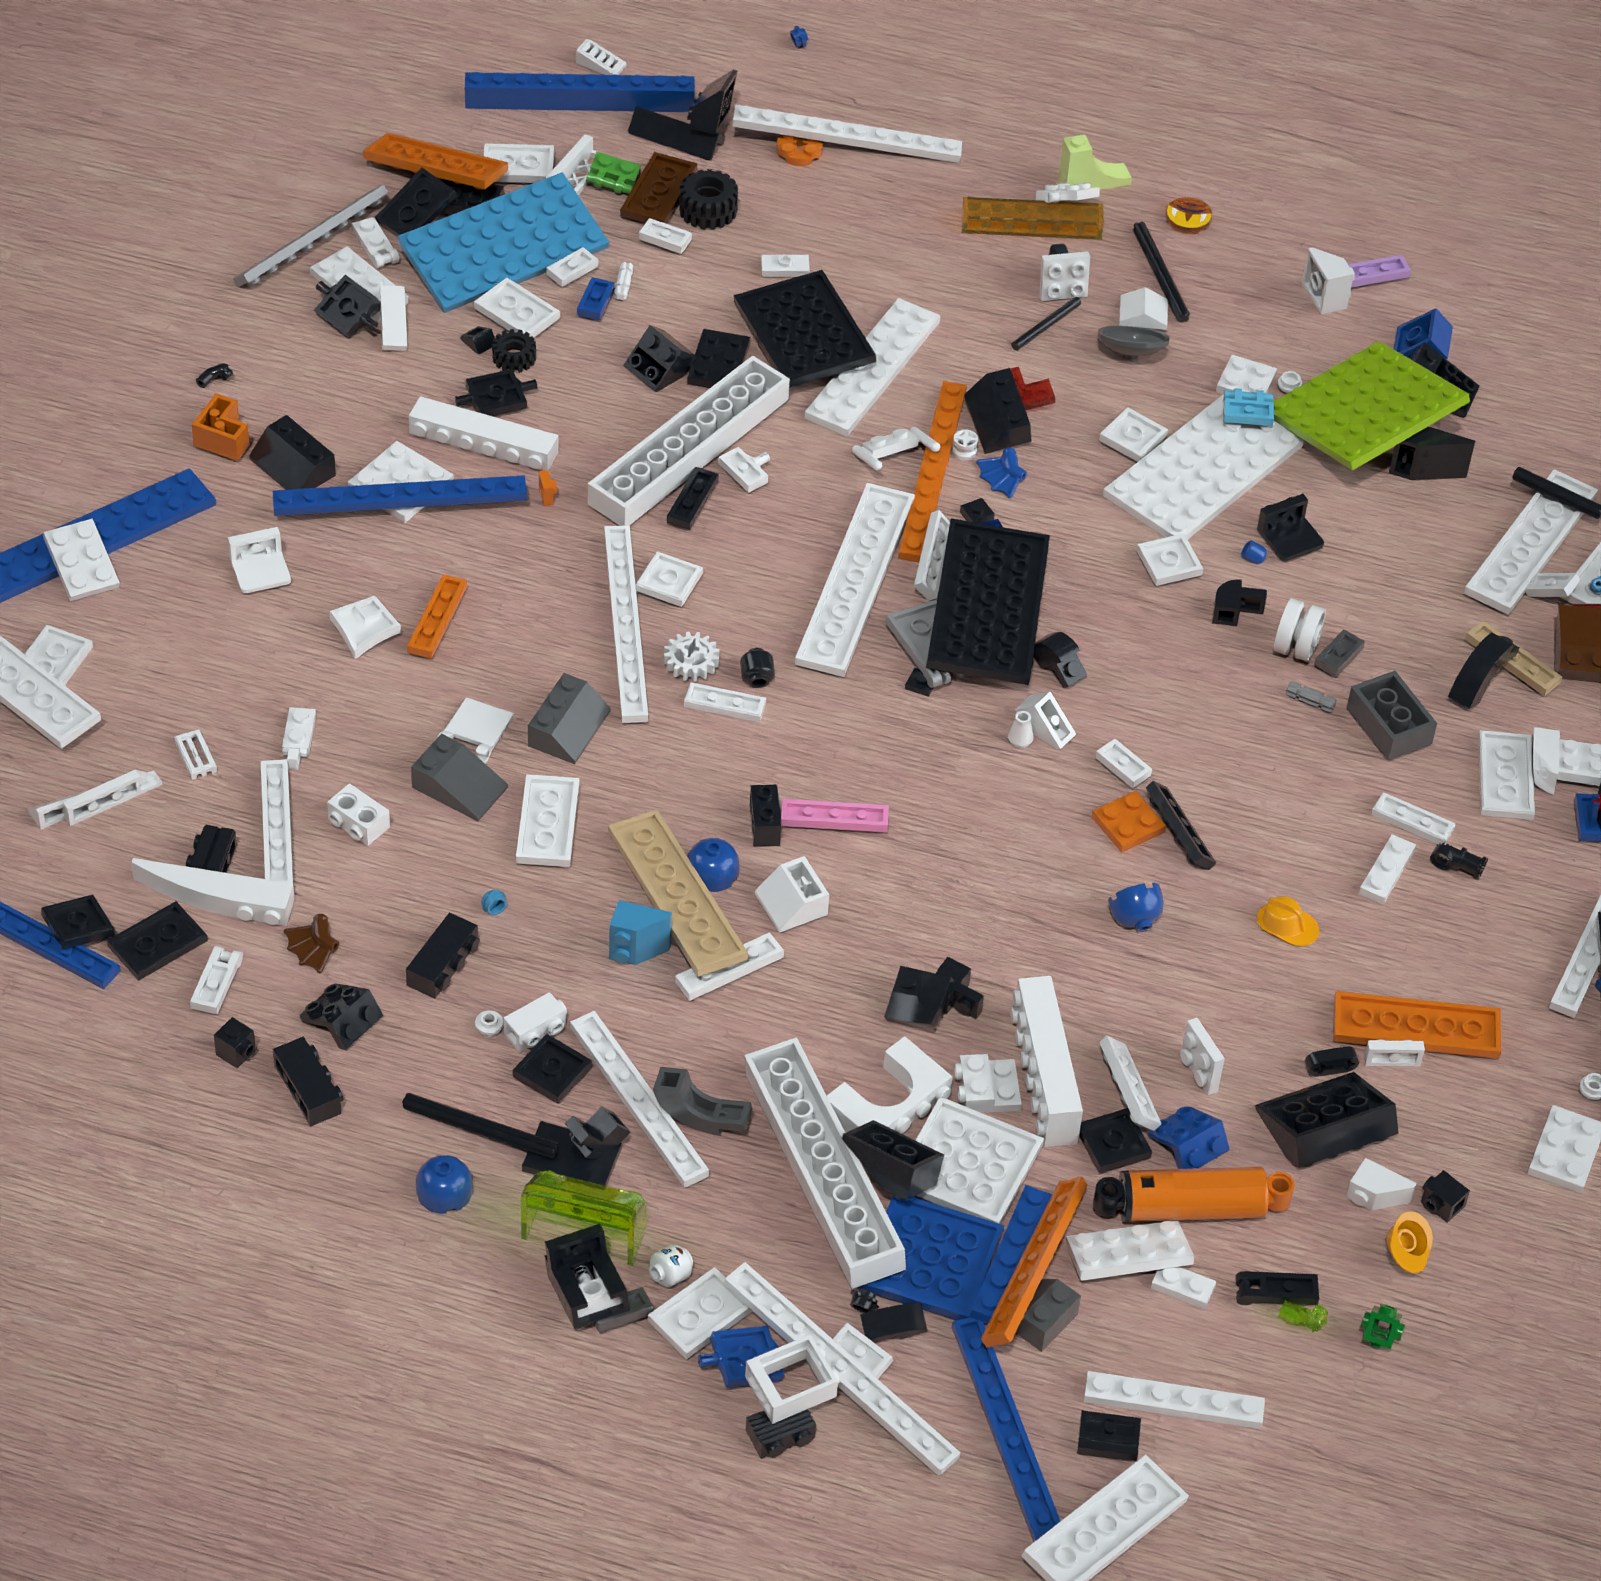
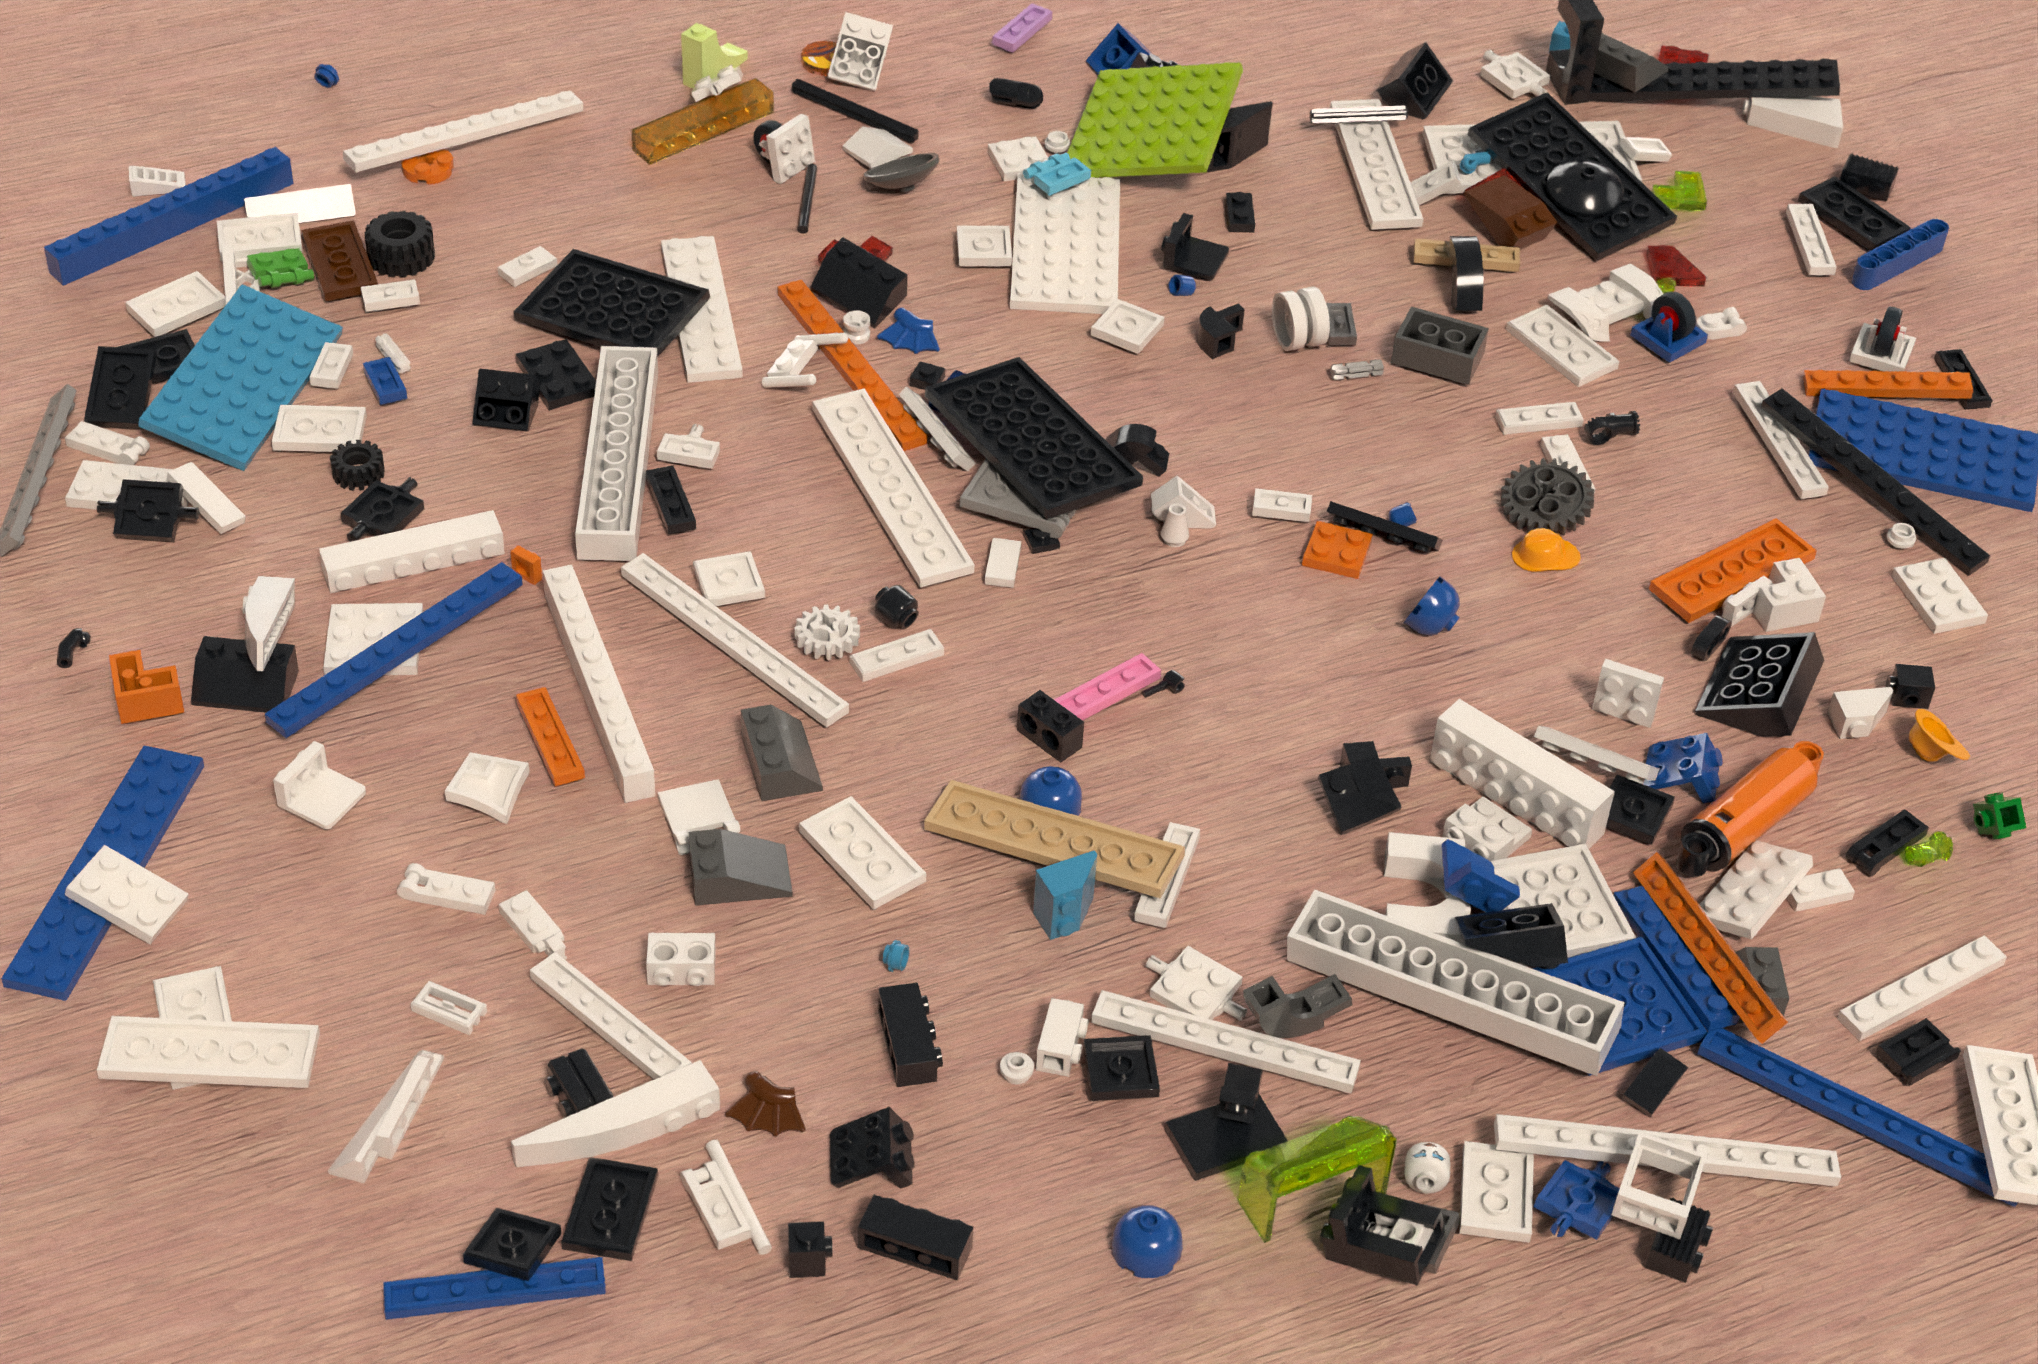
camera: 40 degrees left, 5 degrees down
(236, 984) = (757, 1232): none -> white bar
(271, 678) = (446, 889): none -> white plate
(332, 424) = (266, 615): none -> white slope
(438, 160) = (82, 341): orange plate -> none
(478, 339) = (308, 474): black slope -> none
(480, 1125) = (1119, 1164): black axle -> none
(502, 598) = (599, 684): none -> white brick
(625, 140) = (260, 234): none -> white plate
(662, 1047) = (1196, 985): none -> white plate
(713, 104) = (321, 157): black slope -> none
(793, 895) = (1154, 776): white slope -> none
(863, 1301) = (1611, 1081): black plate -> none
(863, 1350) = (1662, 1120): white plate -> none
(872, 682) = (1003, 562): none -> white tile
(891, 838) = (1171, 680): none -> black hand
(918, 1102) = (1474, 879): none -> blue bracket
(1209, 827) = (1402, 514): none -> blue piece
(1212, 225) = (860, 51): none -> white slope
(1300, 323) = (1016, 93): none -> black arm
(1327, 280) = (1002, 47): white slope -> none
(1334, 881) = (1547, 497): none -> dark grey gear
(1371, 520) = (1240, 212): none -> black plate
(1429, 1075) = (1791, 598): none -> white brick

